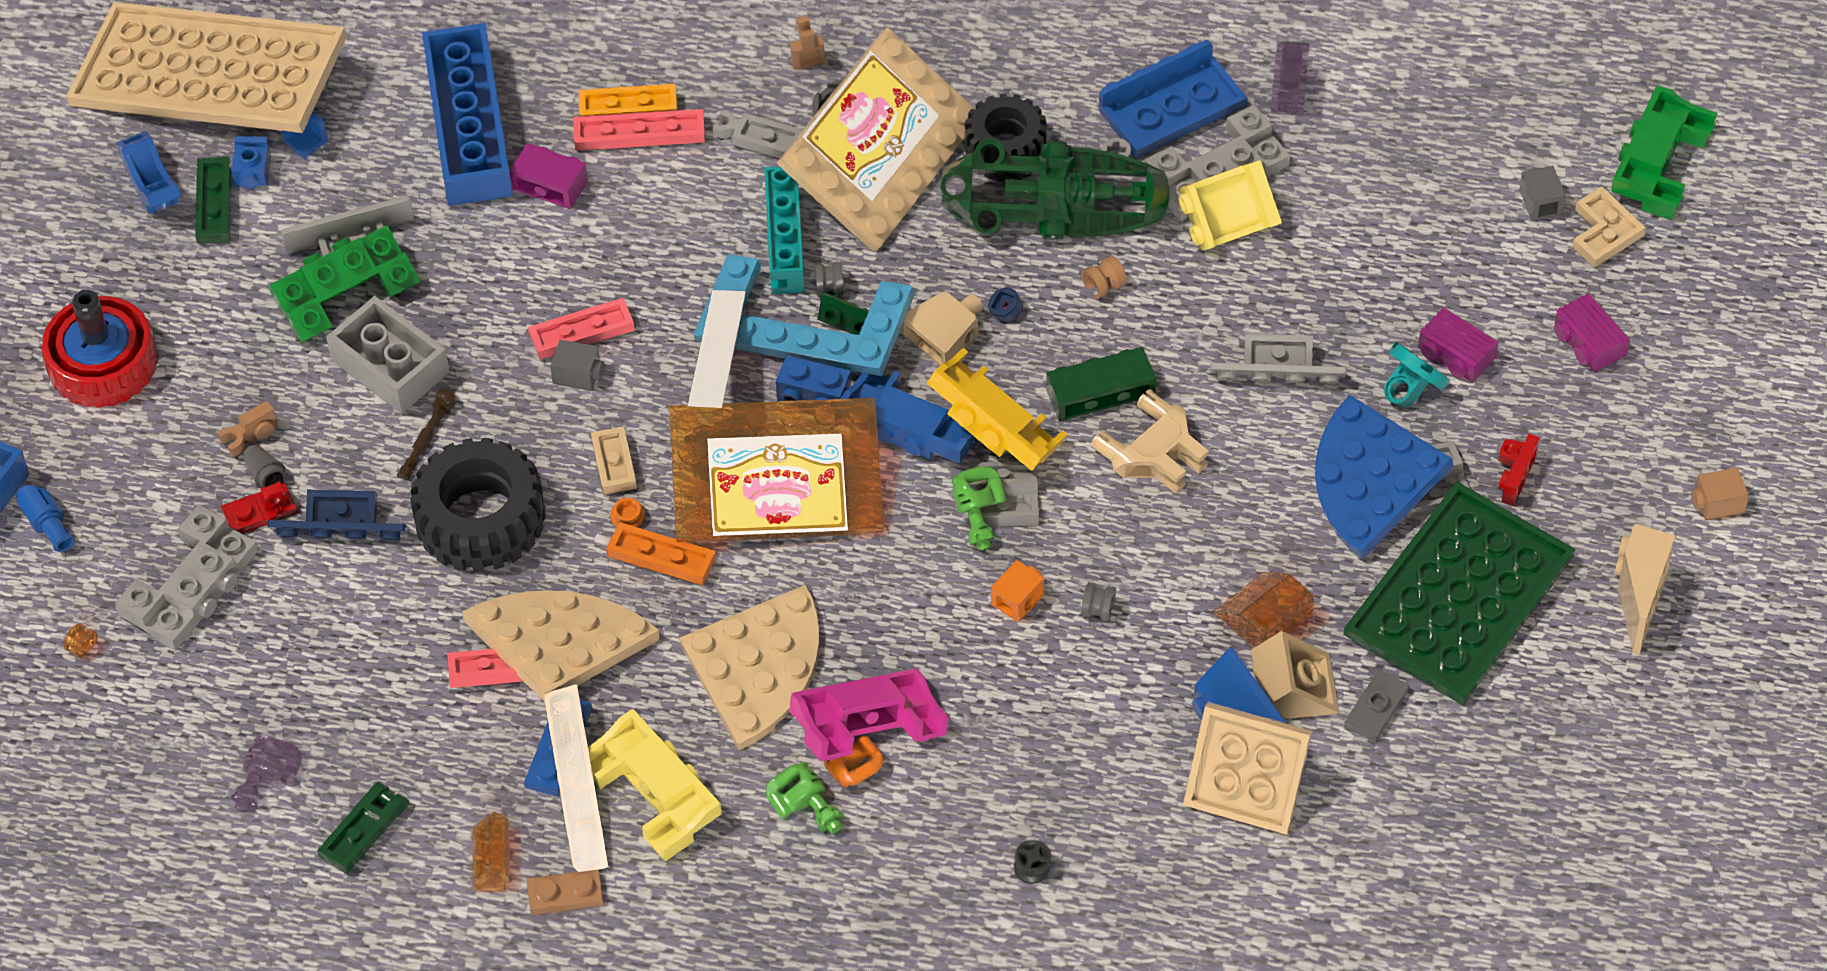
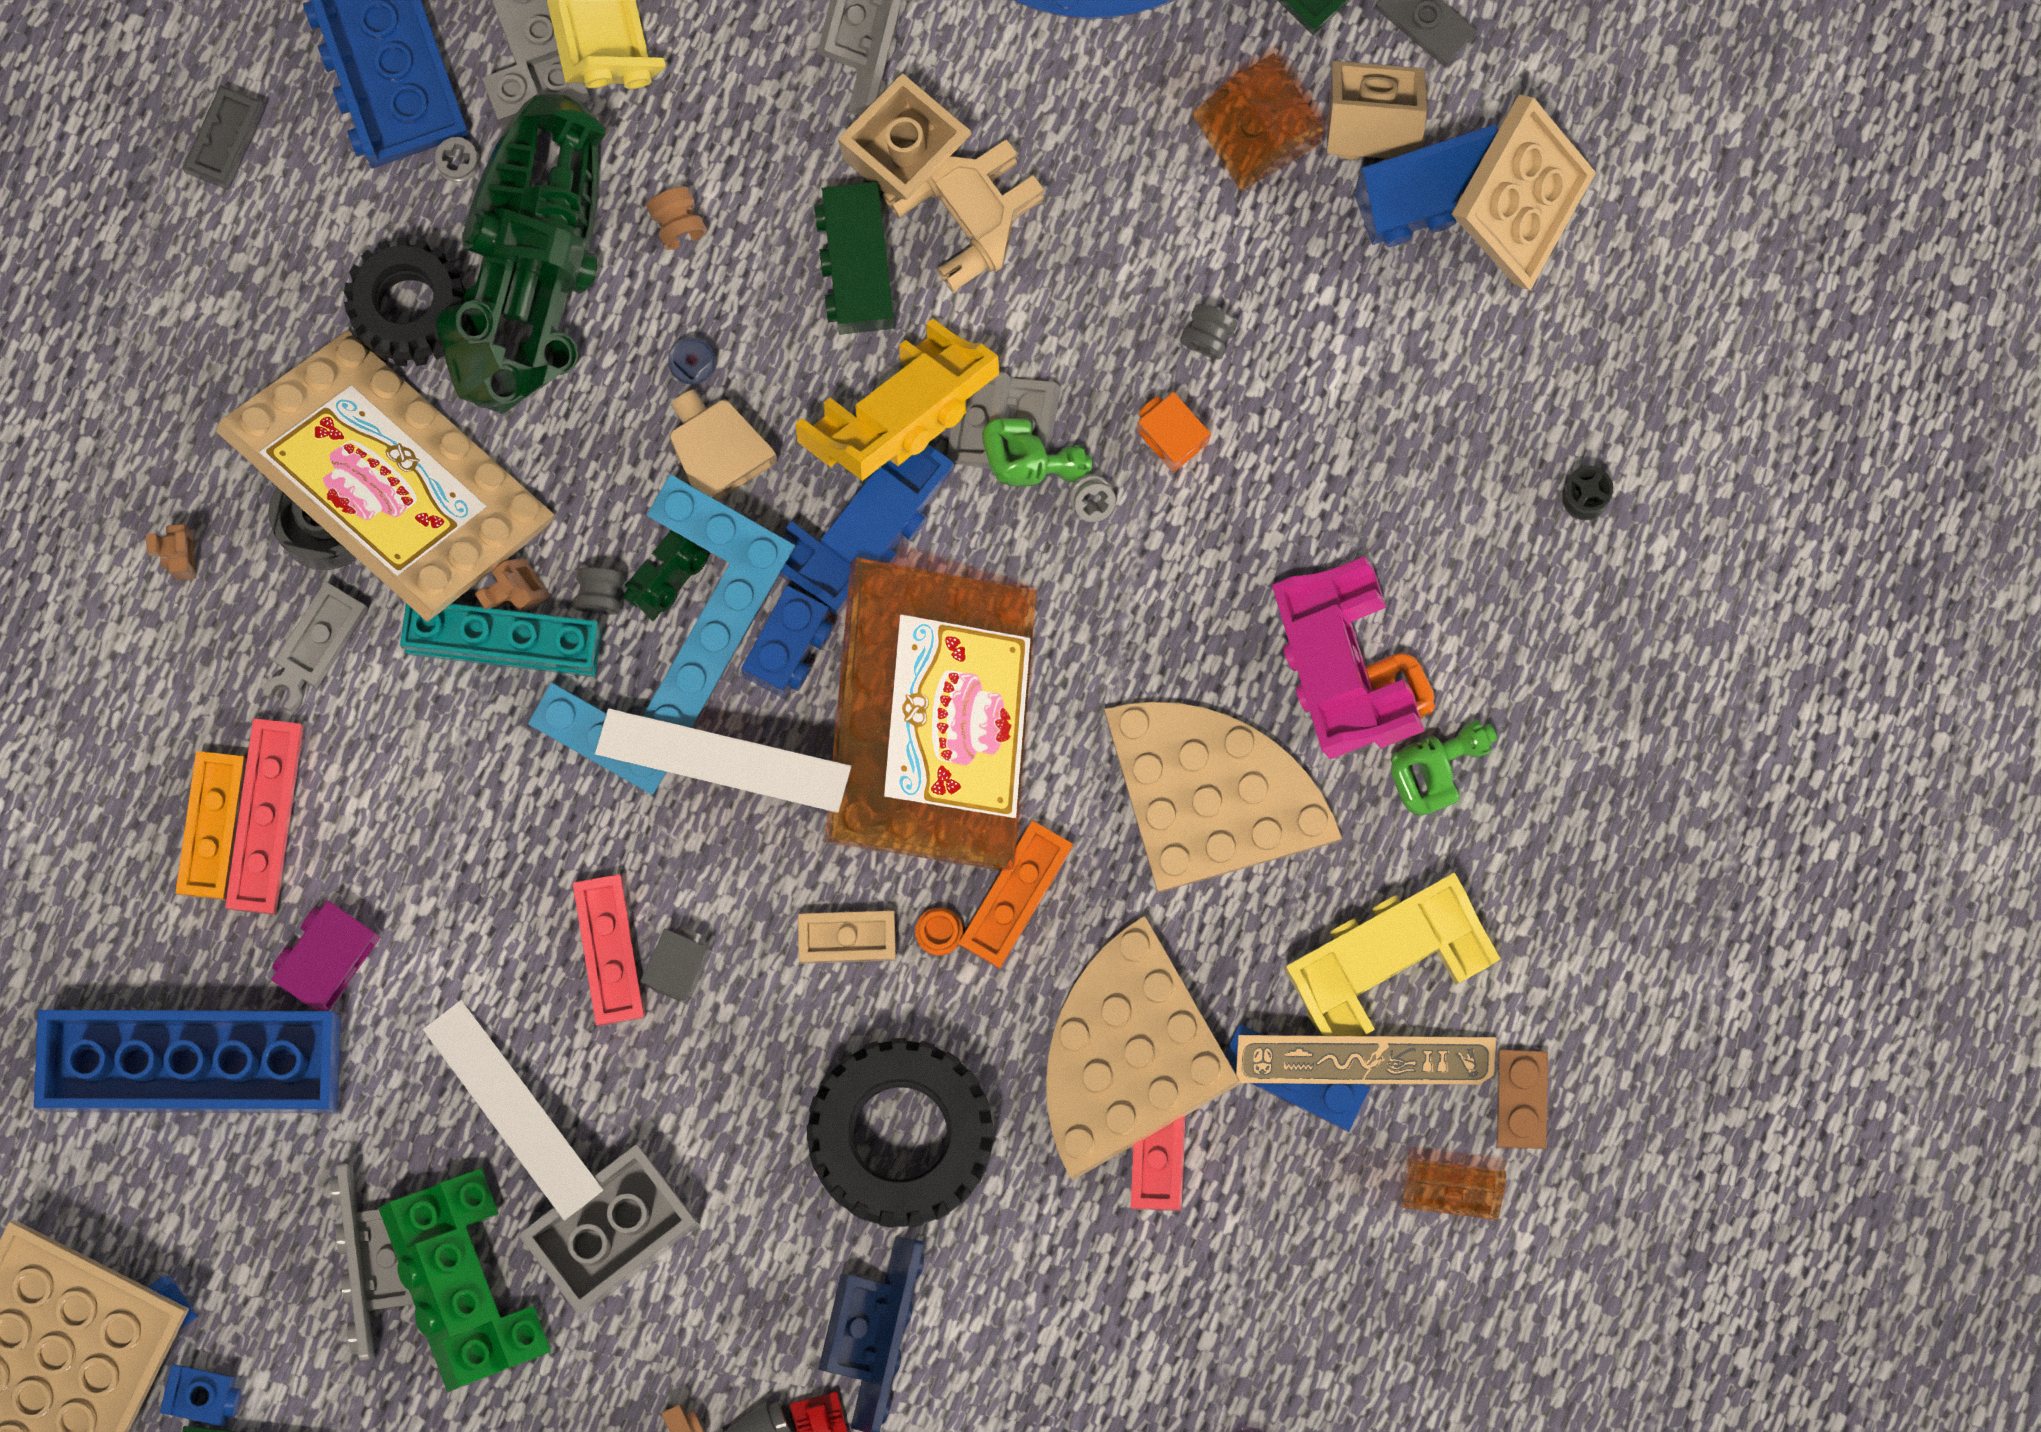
camera: 85 degrees left, 25 degrees up
(362, 827) = (1380, 1356): dark green plate -> none
(443, 403) = (692, 1160): dark brown piece -> none
(461, 288) = (513, 1110): none -> white sticker
(824, 229) = (515, 585): none -> medium nougat plate
(968, 551) = (1092, 511): none -> light grey bush
(1098, 27) = (223, 137): none -> dark grey plate
(1192, 383) = (901, 139): none -> tan slope

